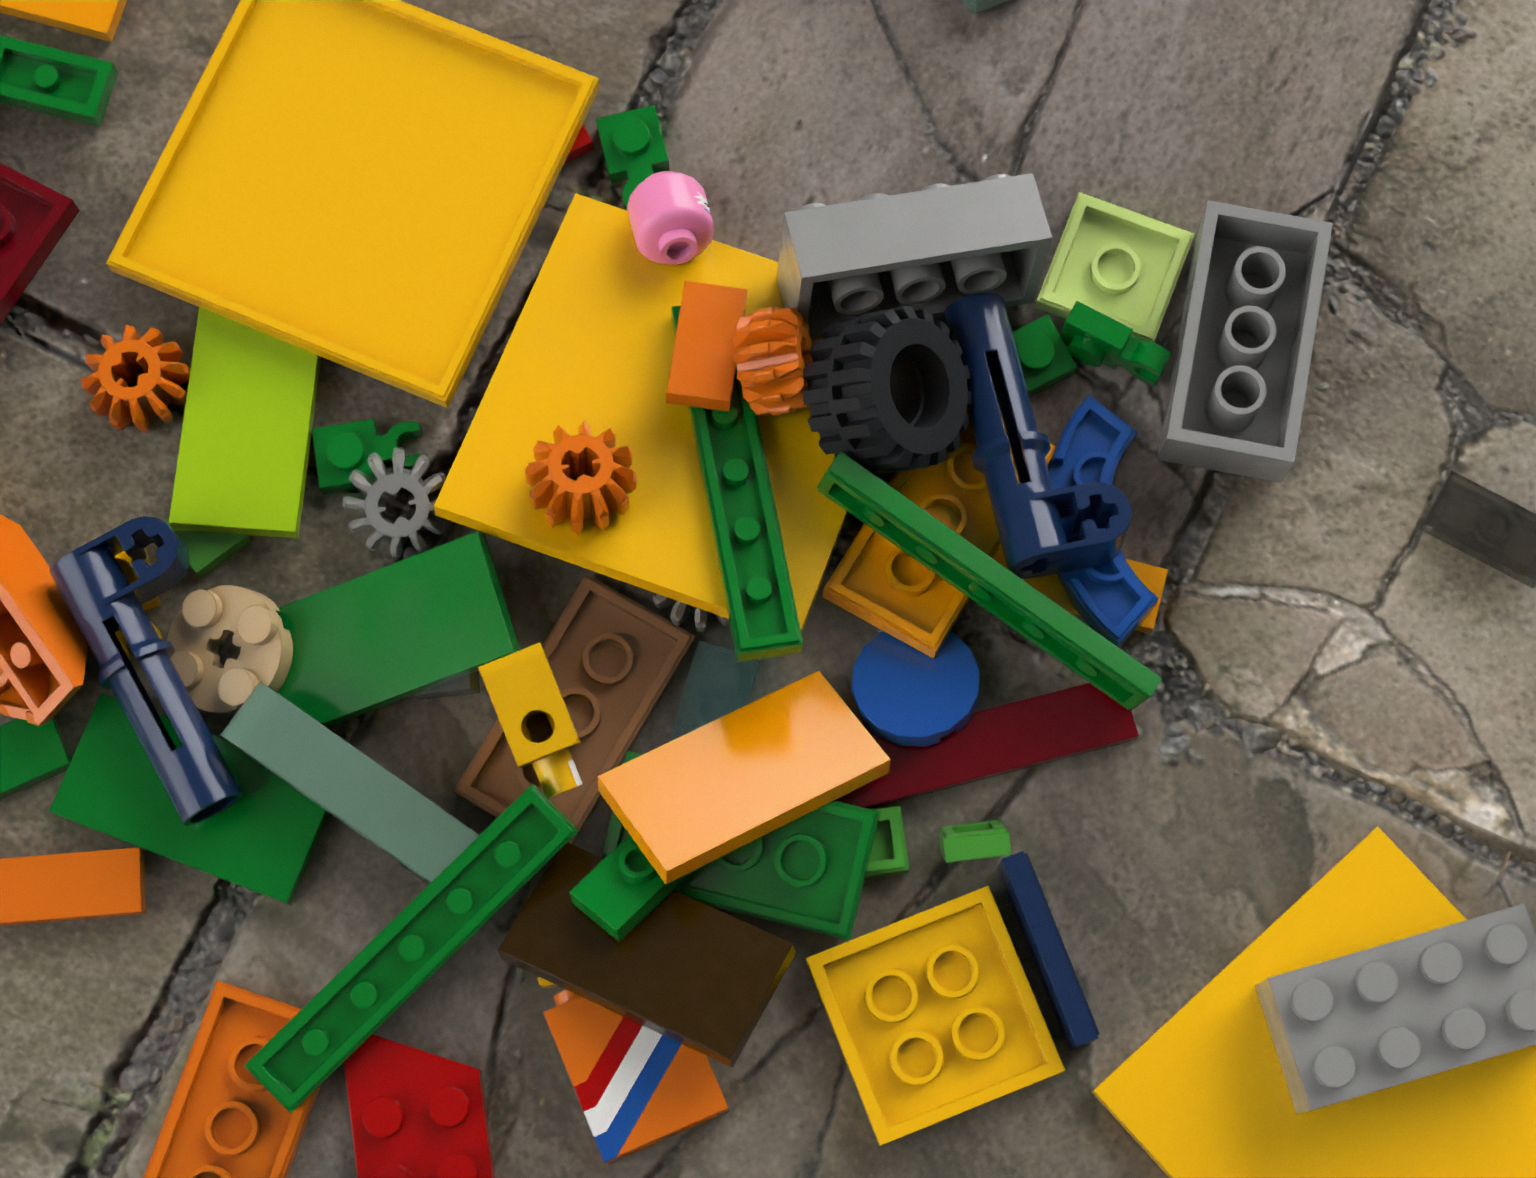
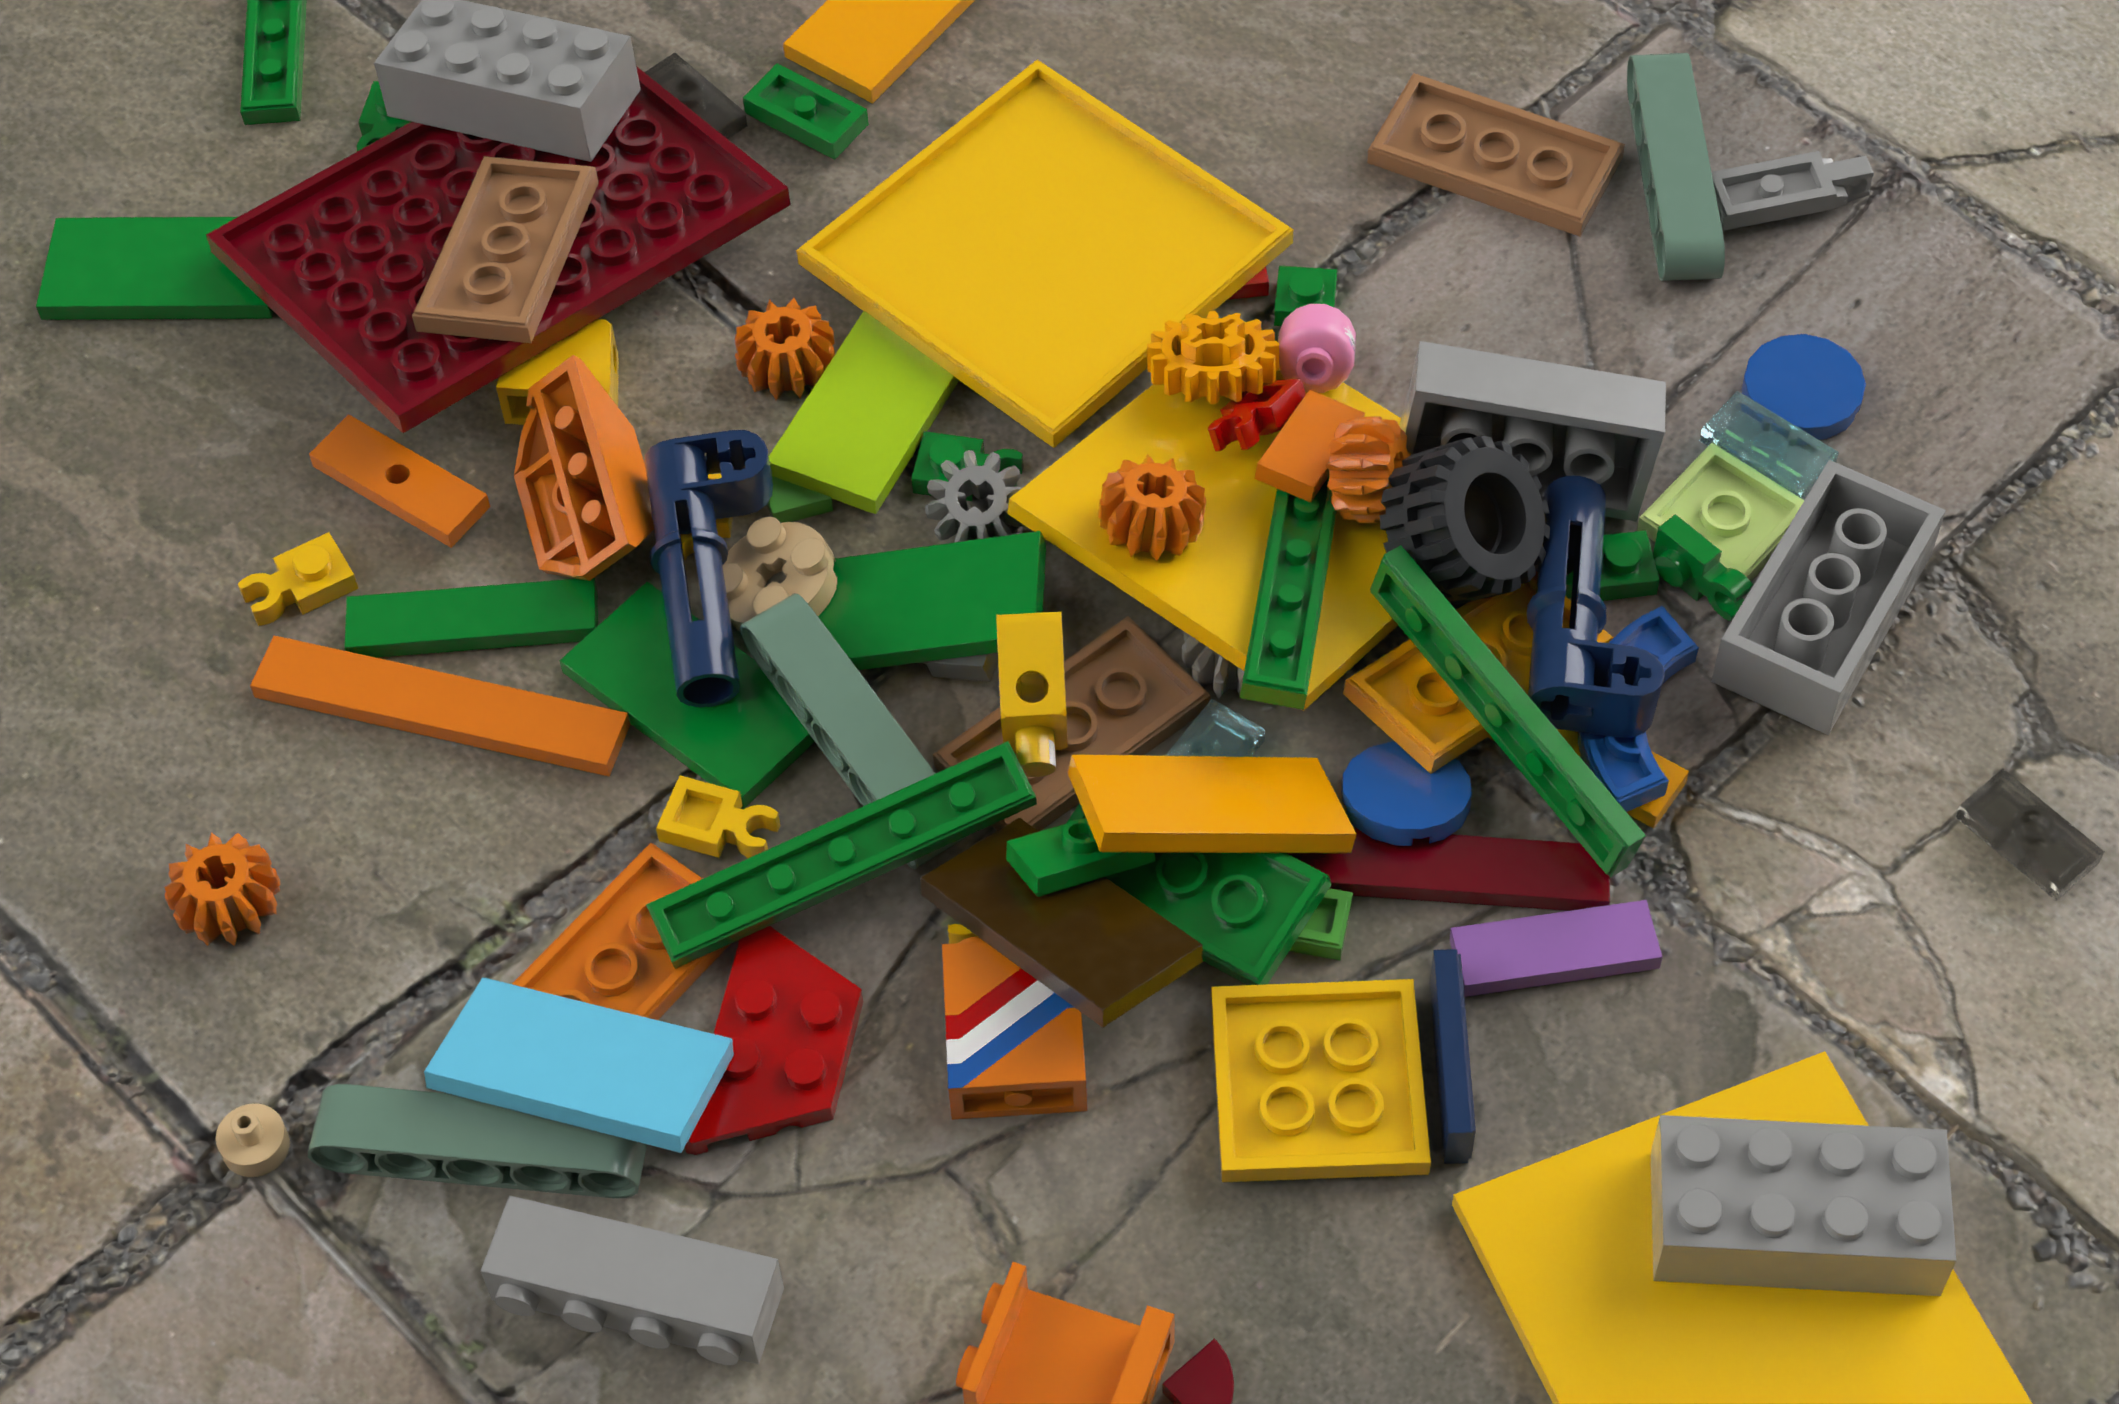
camera: 20 degrees right, 20 degrees down
(261, 936) = (709, 816): none -> yellow plate
(576, 270) = (1213, 357): none -> light orange gear
(639, 313) = (1256, 414): none -> red plate
(974, 841) = (1411, 937): bright green tile -> none
(1102, 797) = (1556, 947): none -> medium lavender tile
(1134, 178) = (1768, 444): none -> clear light blue plate
(1145, 96) = (1806, 383): none -> blue tile

